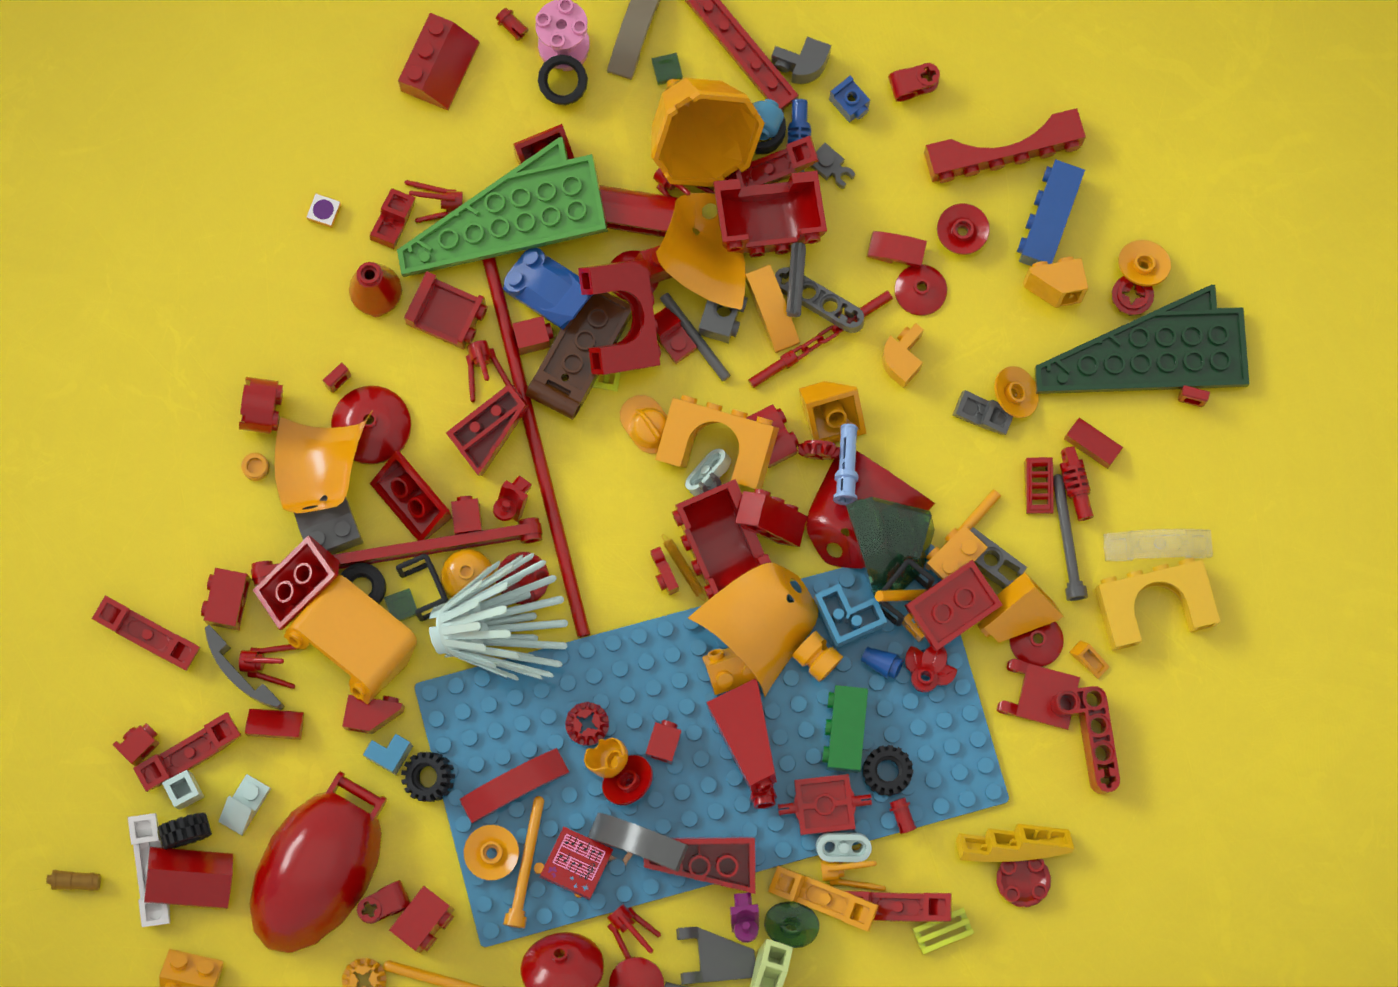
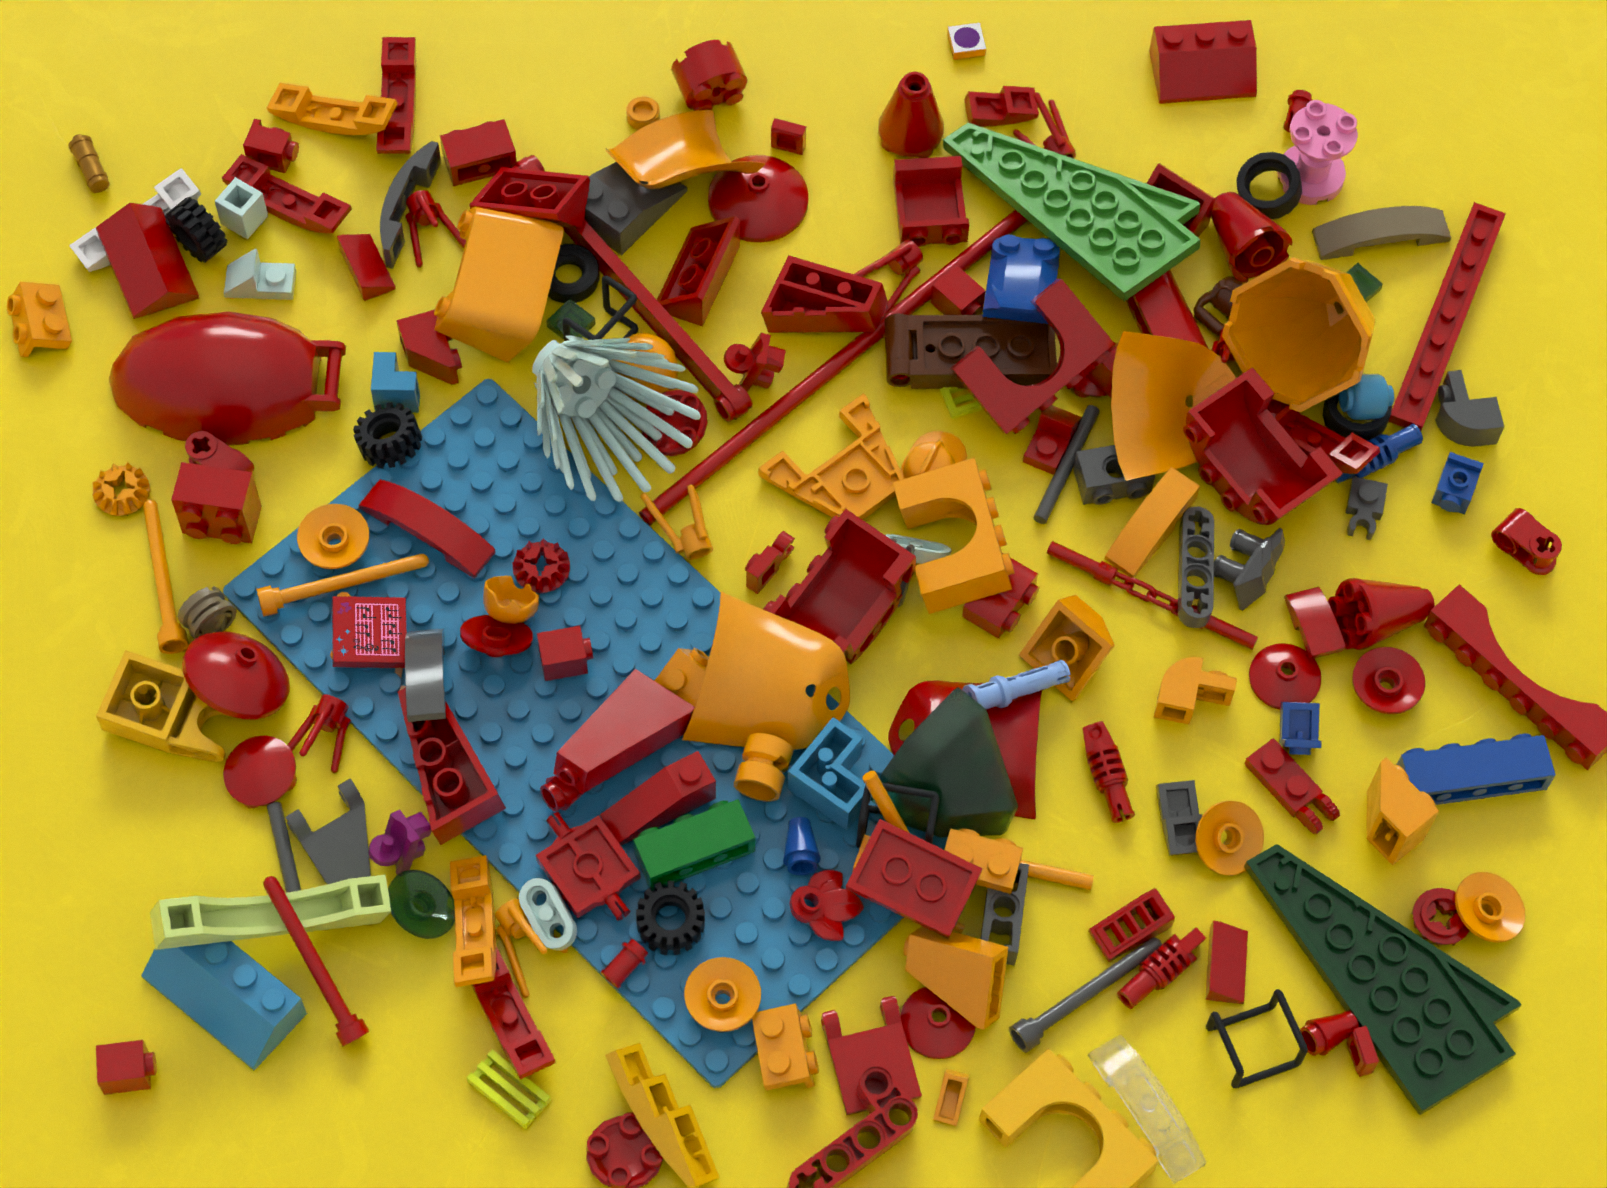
camera: 60 degrees right, 15 degrees down
(132, 685) = (331, 115): none -> light orange slope
(466, 515) = (711, 330): red brick -> none
(498, 966) = (206, 612): none -> dark tan wheel
(594, 118) = (1248, 237): none -> red cone
(621, 611) = (694, 537): none -> light orange plant
(632, 480) = (853, 479): none -> light orange wing
(634, 158) = (1220, 299): none -> reddish brown piece
(694, 585) = (795, 574): light orange piece -> none
(771, 518) = (897, 629): red brick -> none
(796, 279) = (1201, 526): dark grey axle -> none
(803, 735) = (661, 798): none -> red slope
(819, 450) = (1014, 649): red gear -> none
(846, 268) = (1252, 578): none -> dark grey connector
(914, 207) = (1377, 610): none -> red cone
(928, 439) = (1107, 770): none -> red hinge
(965, 303) = (1299, 727): none -> blue bracket
(968, 755) = (719, 977): none -> light orange dish
(997, 332) = (1290, 785): none -> red hinge
(1009, 746) = (784, 1047): none -> light orange bracket
(1170, 409) = (1328, 1032): none -> red cone
(1171, 477) = (1215, 1023): none -> black piece

